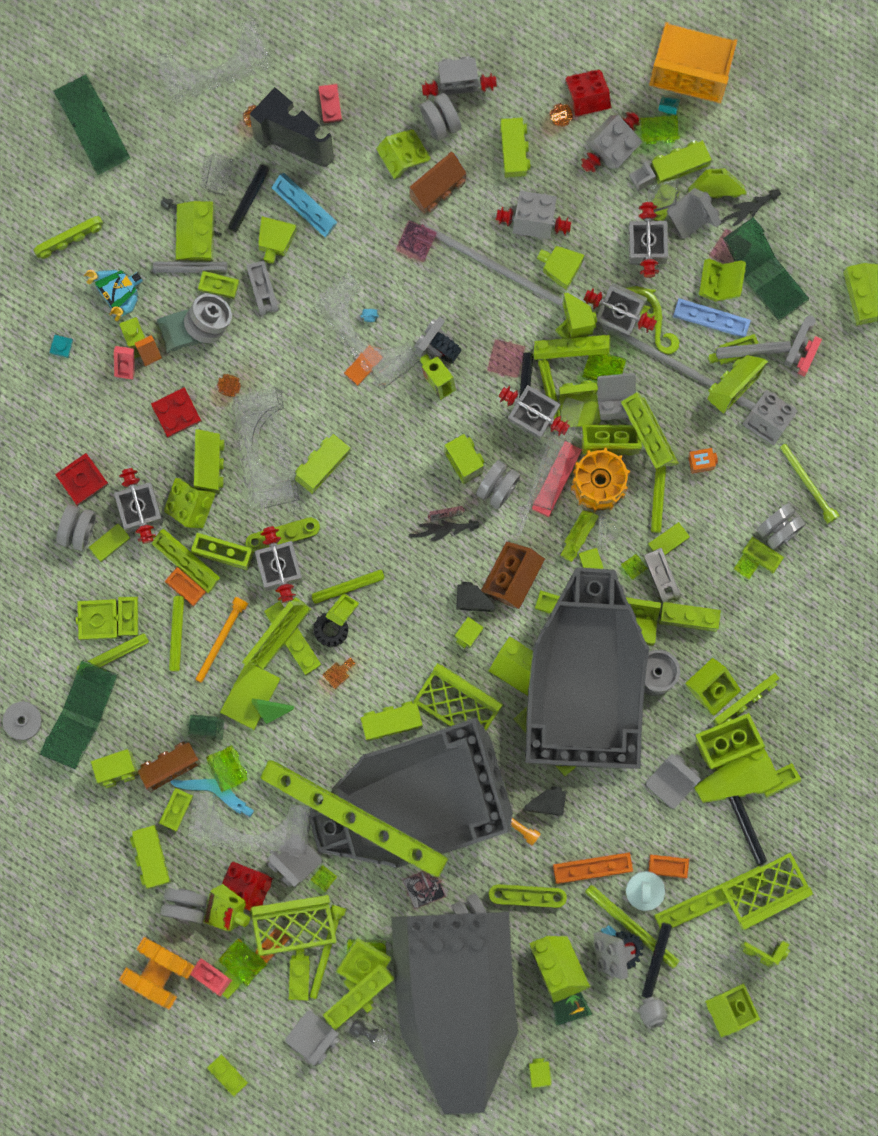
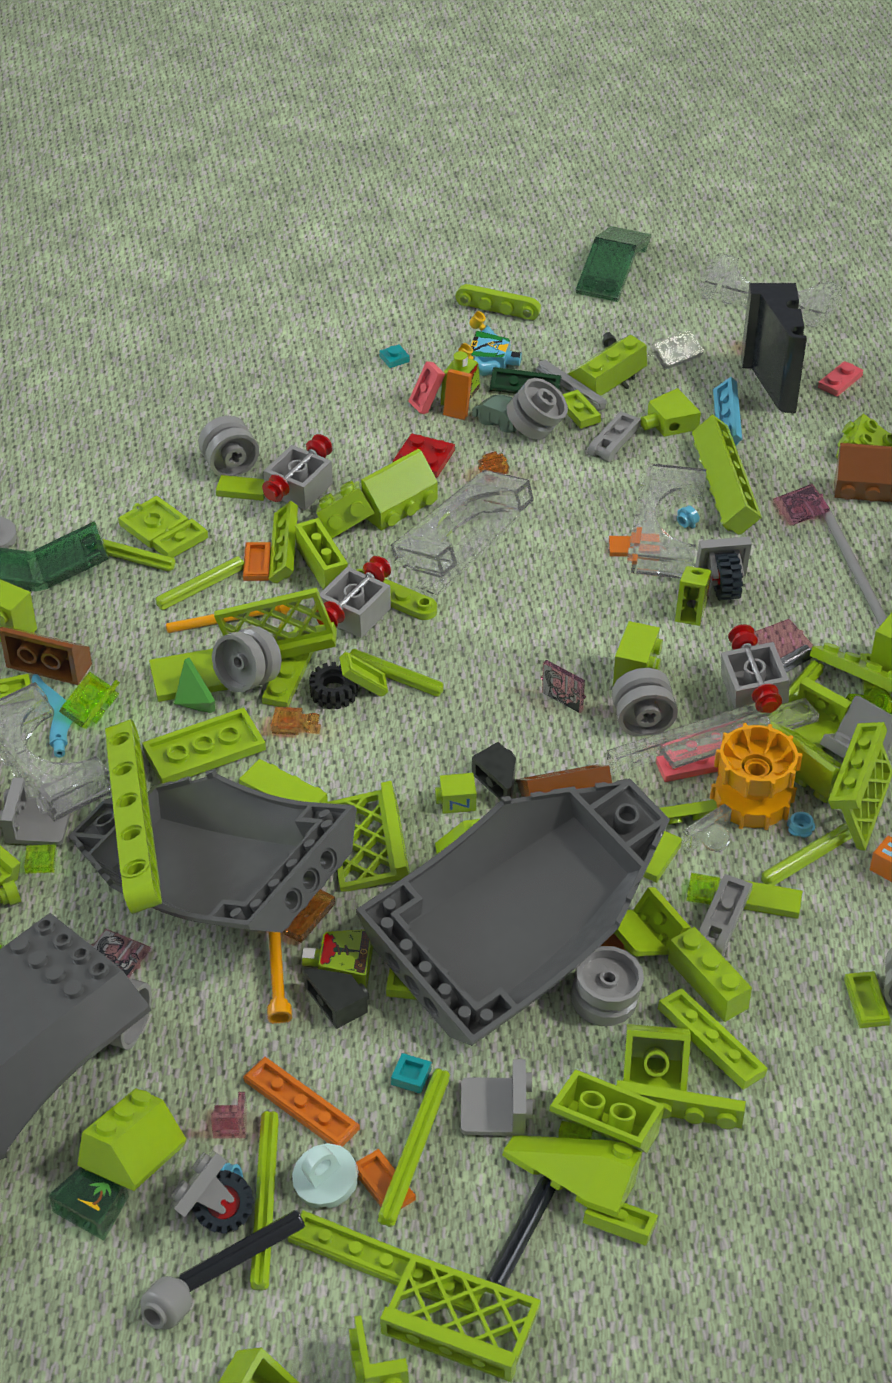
camera: 50 degrees right, 35 degrees down
(81, 479) = (282, 431): red plate -> none
(165, 293) = (512, 380): none -> dark green tile
(205, 727) = (115, 645): clear green torso -> none
(248, 198) = (683, 382): black axle -> none
(282, 667) = (246, 659): none -> light grey wheel
(316, 734) = (204, 746): none -> lime plate
(322, 463) = (498, 570): lime brick -> none
(359, 262) = (726, 475): none -> lime brick
(442, 531) = (538, 703): pearl dark grey piece -> none
(527, 896) = (199, 1058): lime plate -> none
(528, 782) = (343, 953): none -> lime torso
(576, 908) = (230, 1120): none -> clear pink panel
(622, 804) = (411, 1073): none -> teal plate
(643, 480) = (797, 821): none -> medium azure plate
(665, 838) = (413, 1148): none -> lime axle
(723, 649) = (713, 1038): none -> lime plate
(746, 566) = (834, 993): clear neon green tile -> none

